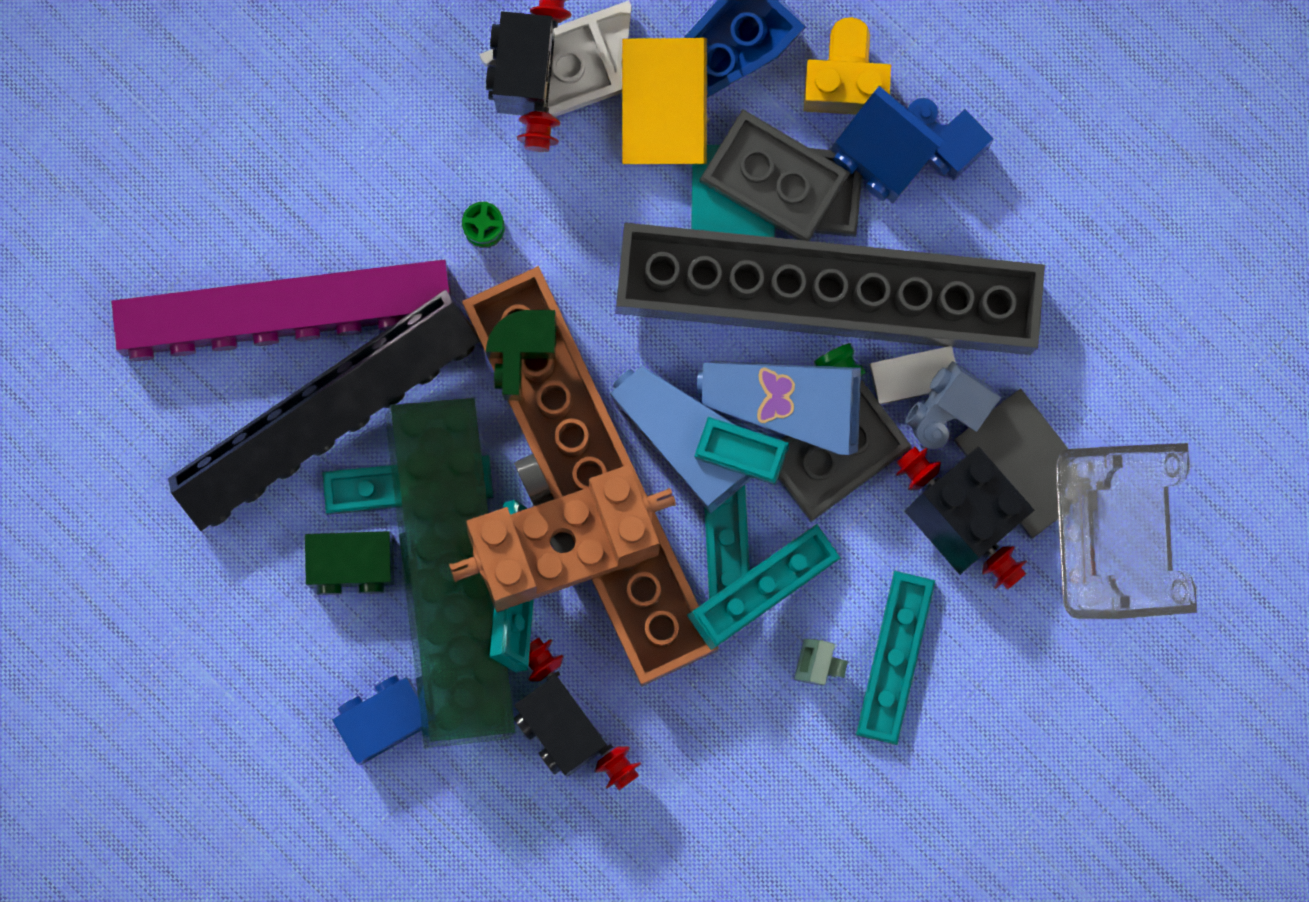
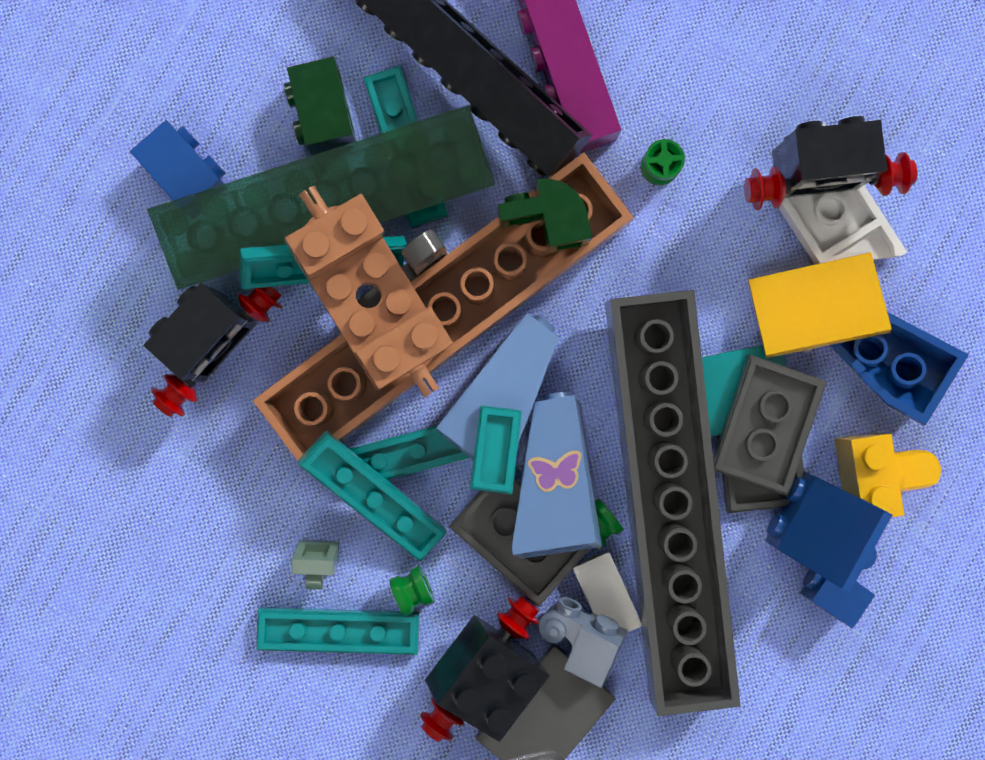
camera: 65 degrees right, 5 degrees up
(868, 570) = (412, 590): none -> green wheel

